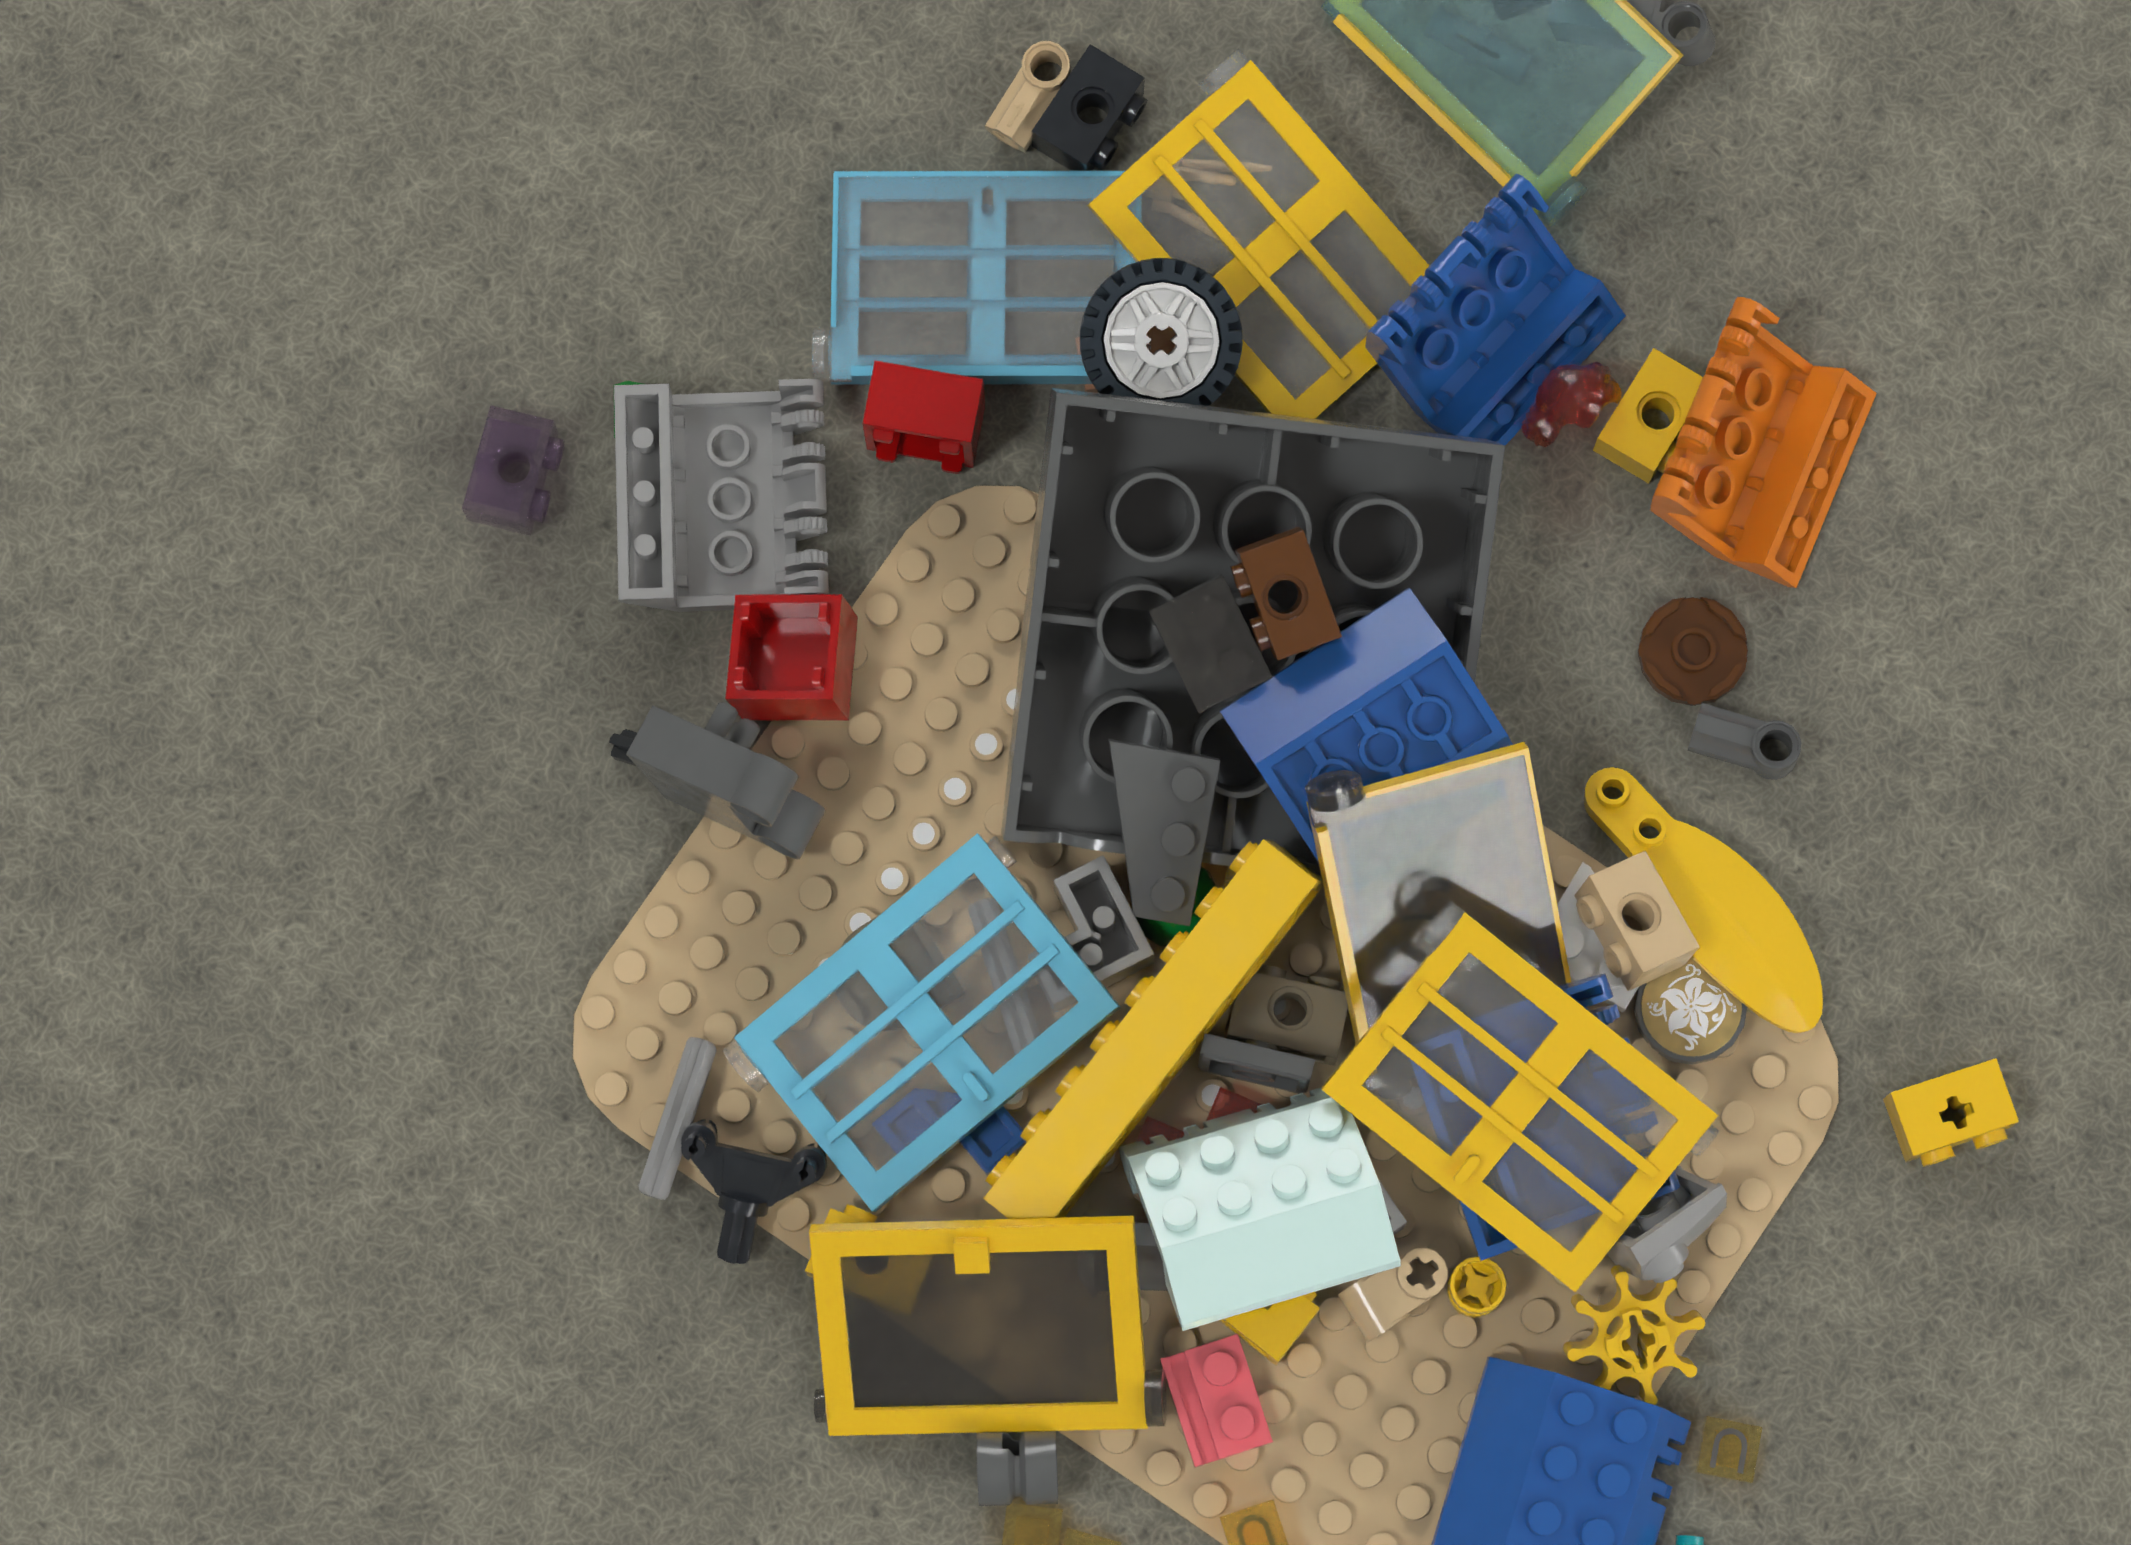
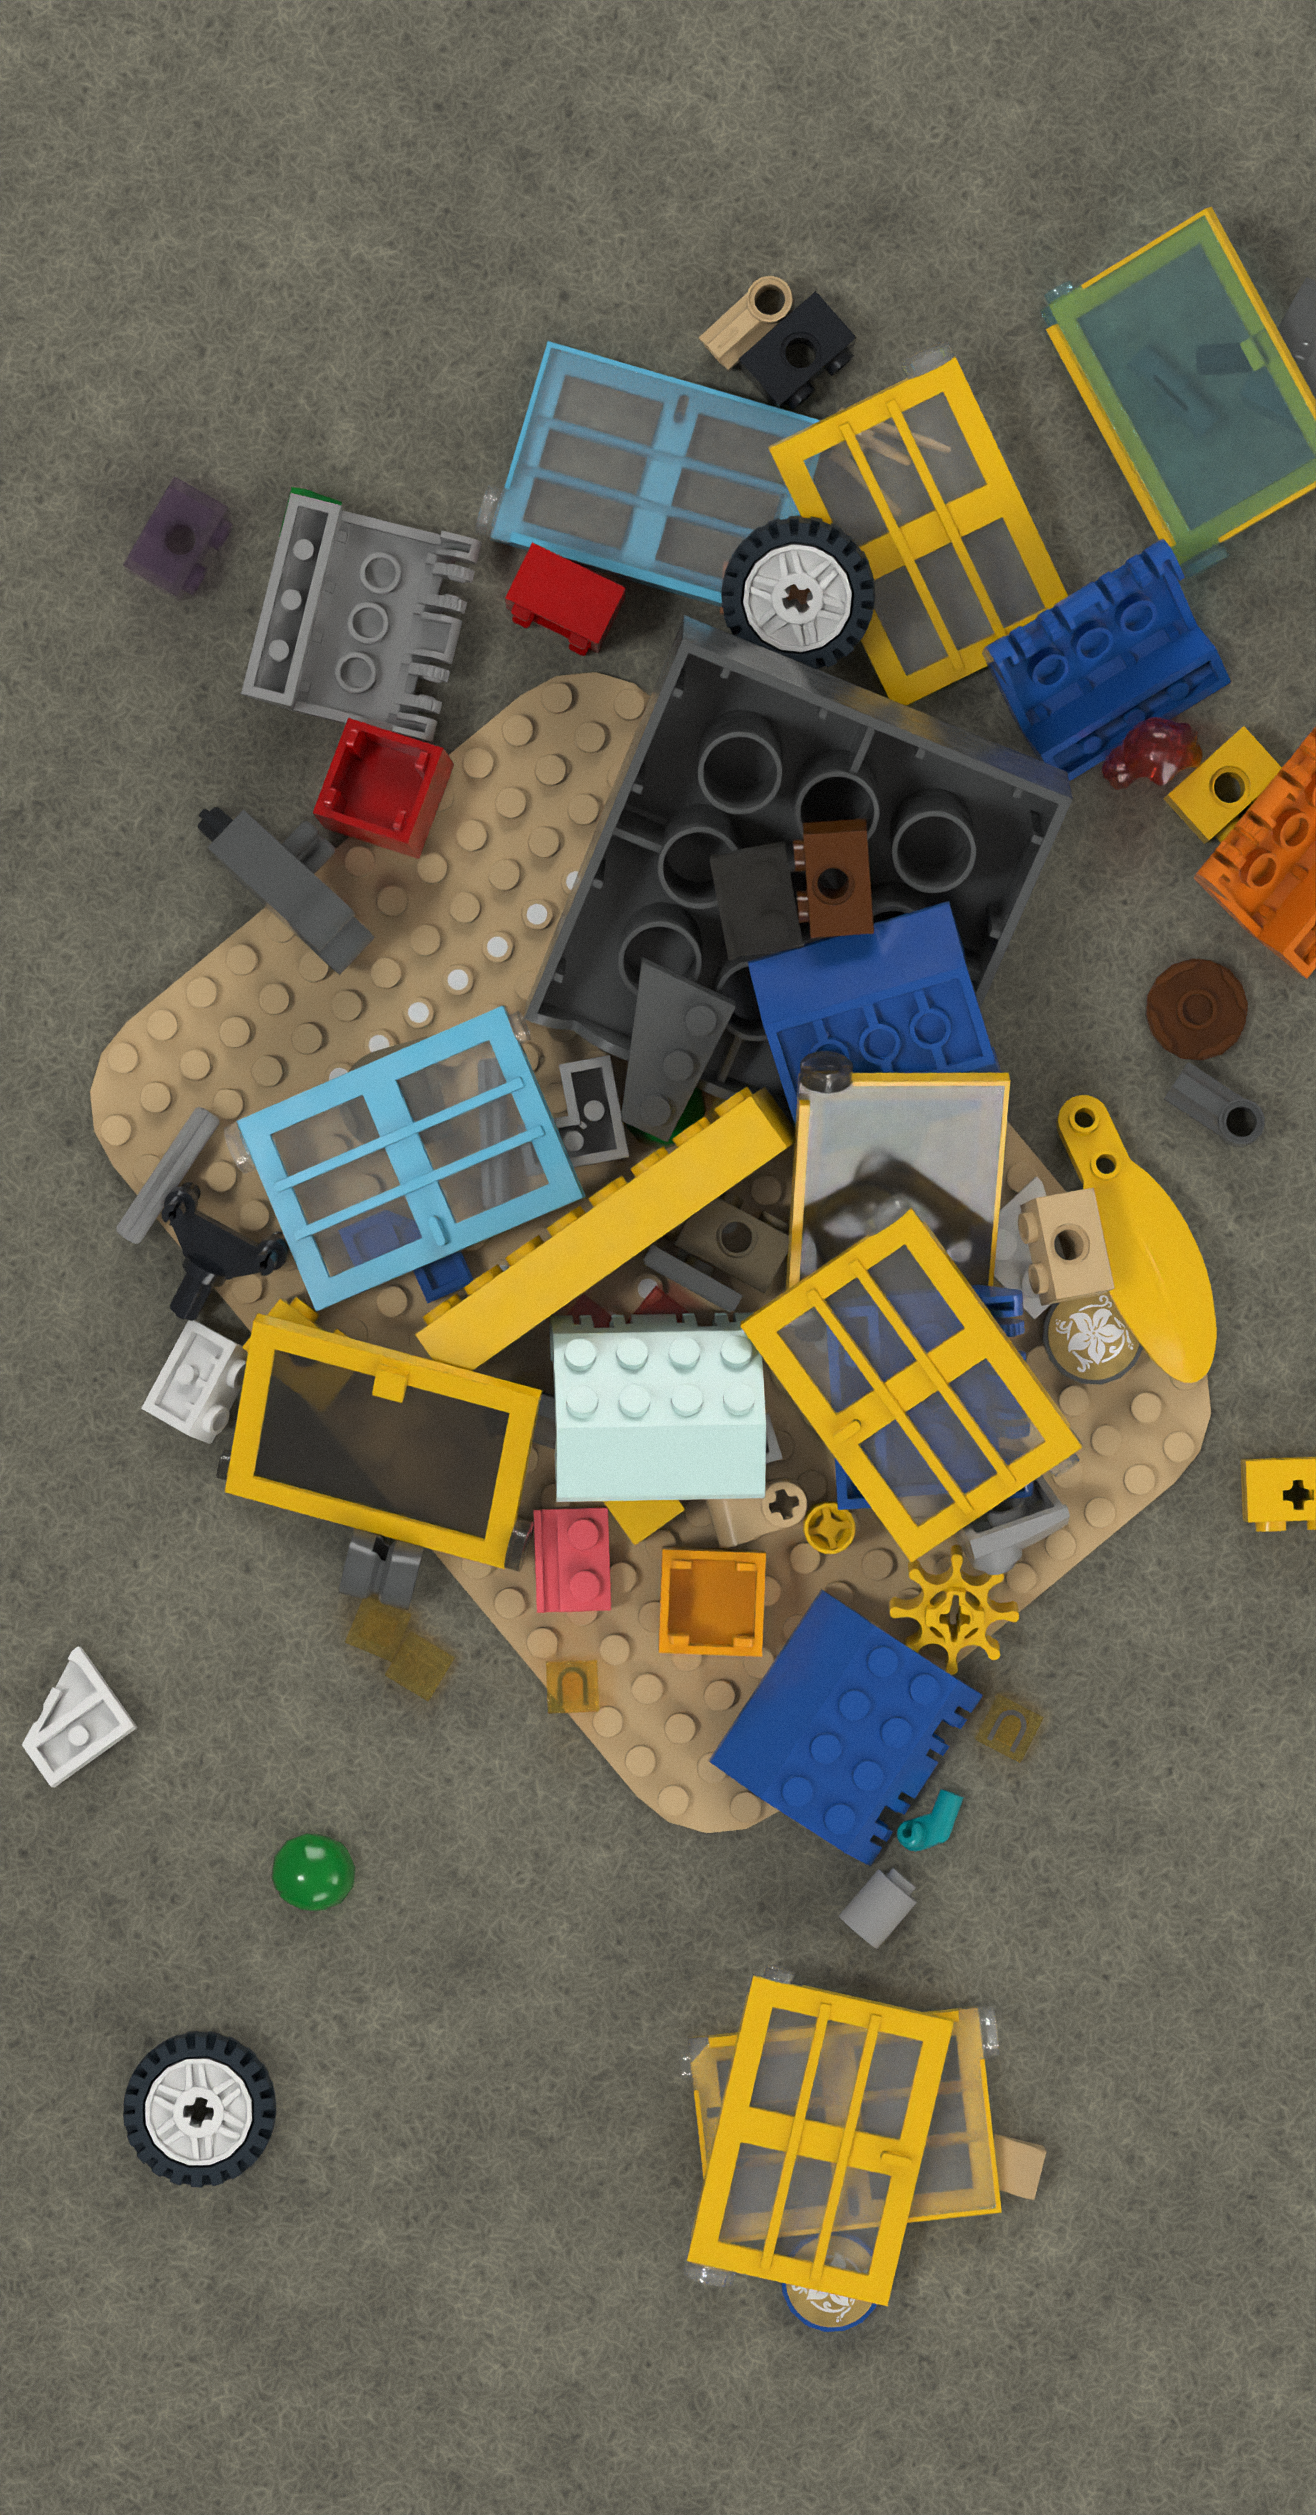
camera: 15 degrees right, 10 degrees up
(770, 1327) = (198, 1382): none -> white bracket
(1376, 1399) = (711, 1601): none -> light orange container

